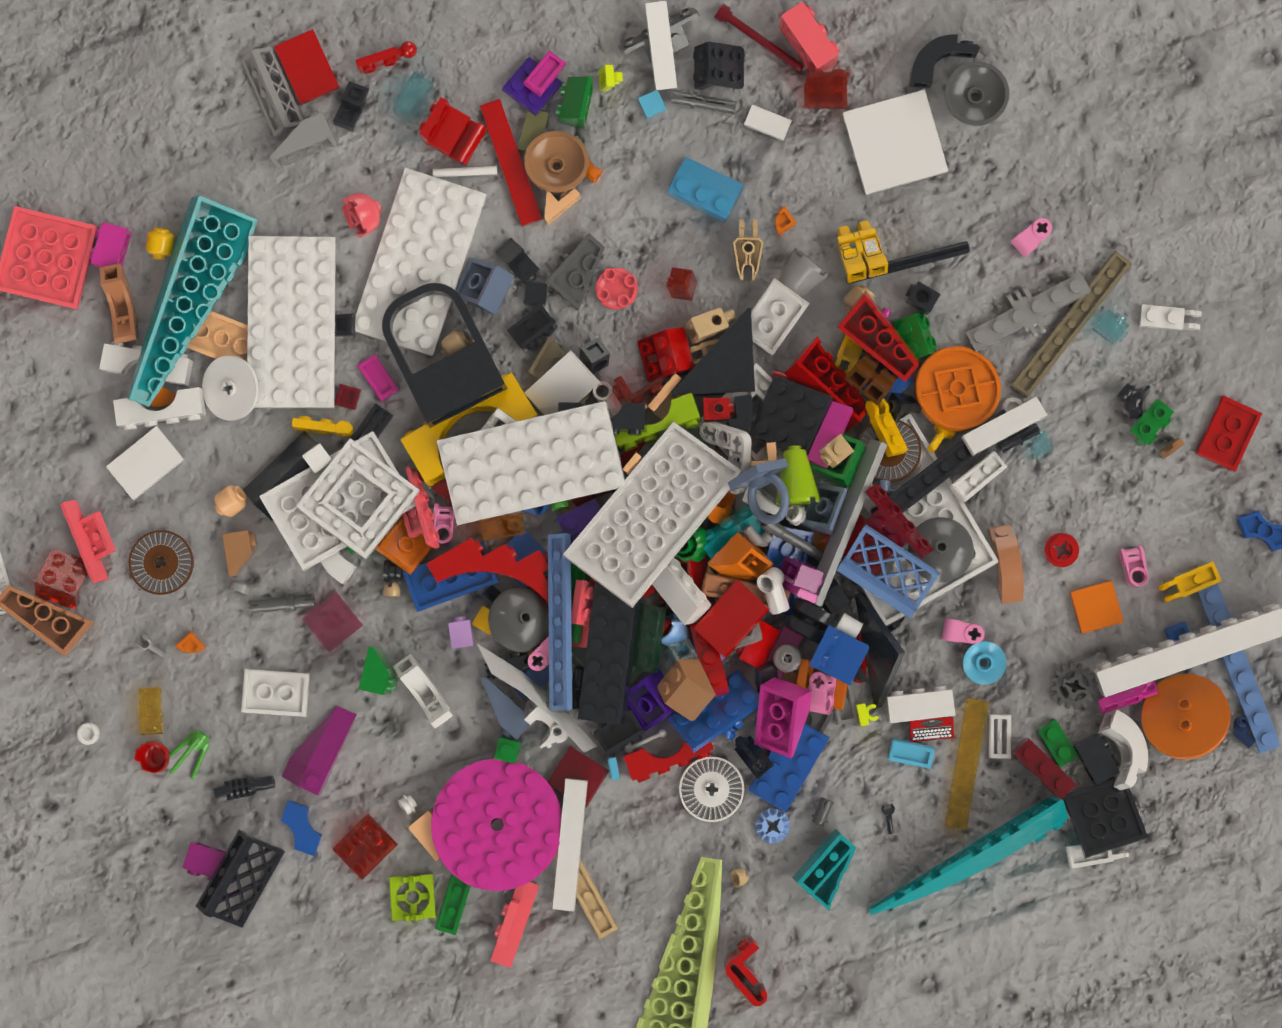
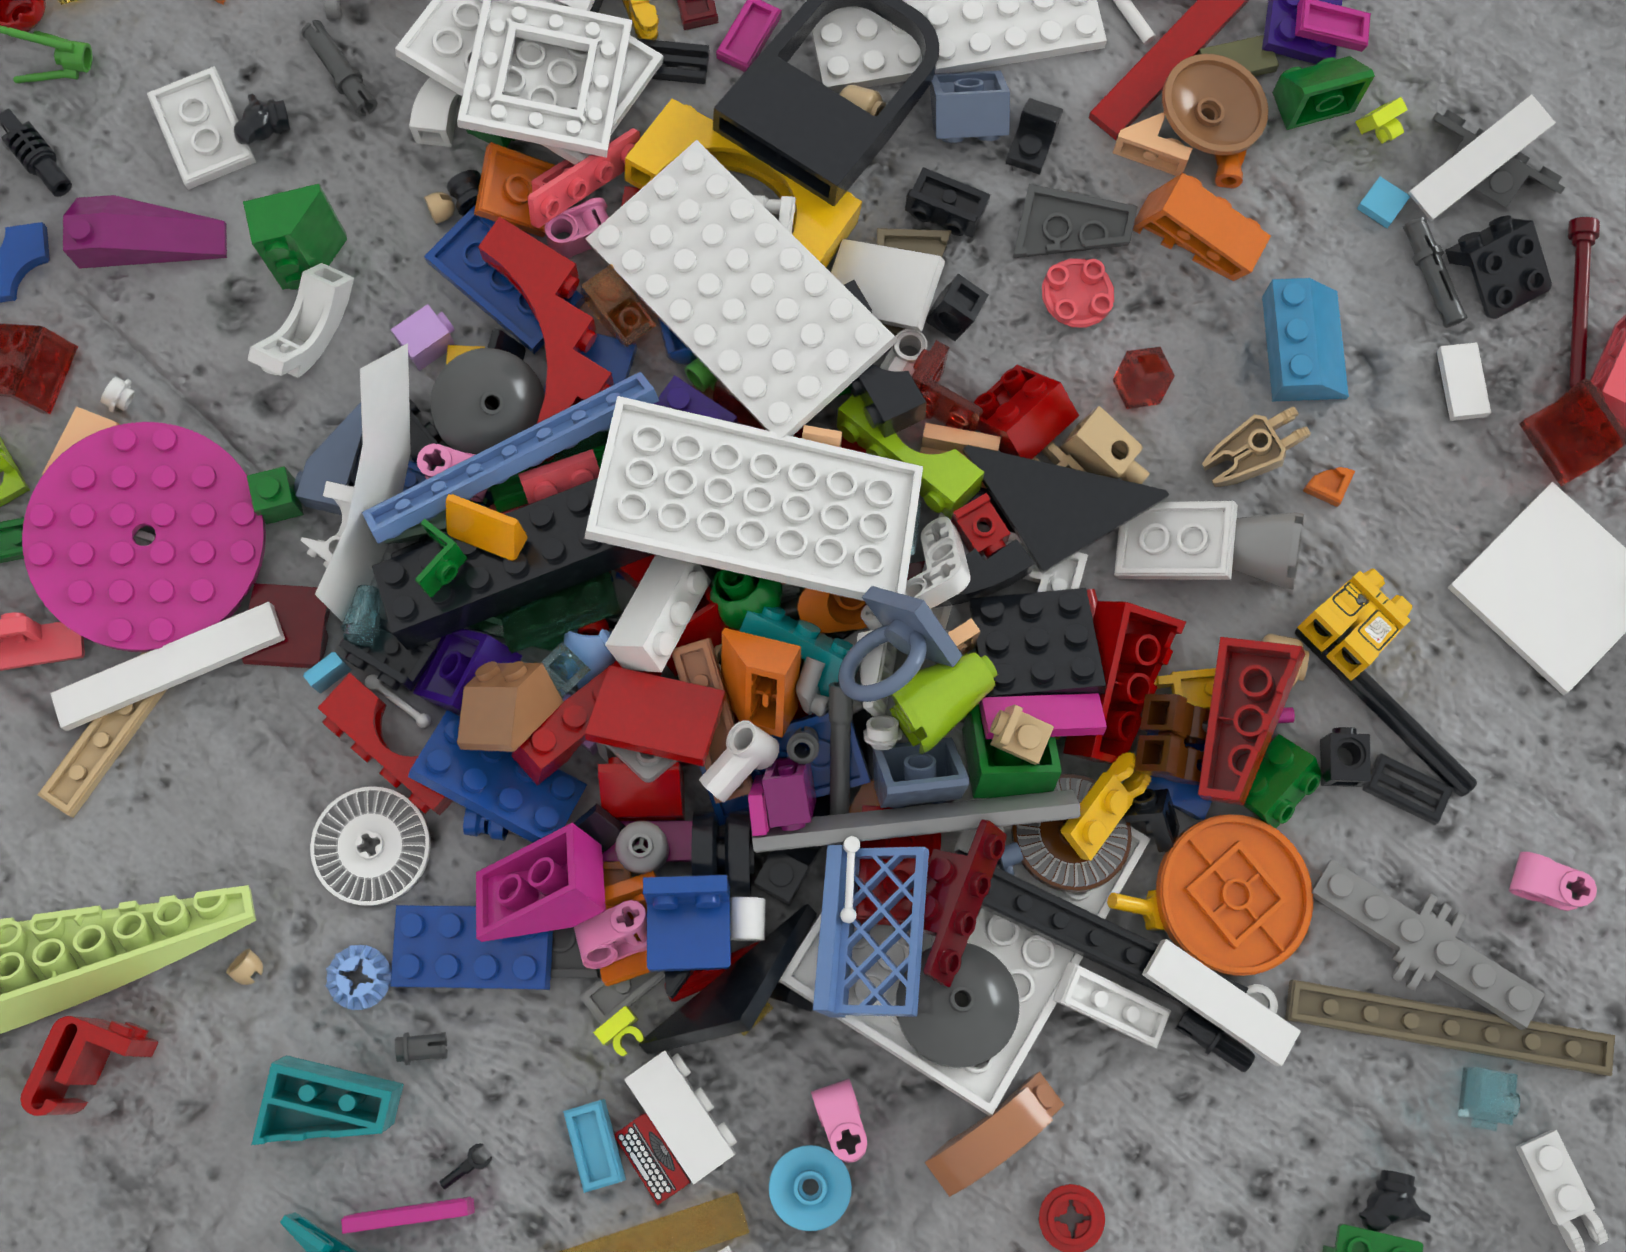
camera: 60 degrees right, 10 degrees down
(291, 659) = (261, 120): none -> black animal
(332, 622) = (348, 152): clear pink plate -> none
(535, 293) = (1002, 183): black tile -> none
(594, 654) = (484, 528): none -> light orange slope
(598, 736) = (363, 617): none -> clear light blue cone
(605, 683) = (444, 565): none -> green bracket
(618, 206) = (1204, 225): none -> orange wedge
(752, 756) = (454, 881): black hinge -> none
(782, 555) = (798, 752): none -> dark grey pin
(844, 559) = (851, 846): none -> white hinge
(897, 855) = (407, 1214): none -> dark pink tile
(936, 286) = (1377, 775): none -> black tile
(1041, 445) = (1224, 1086): clear light blue tile -> none

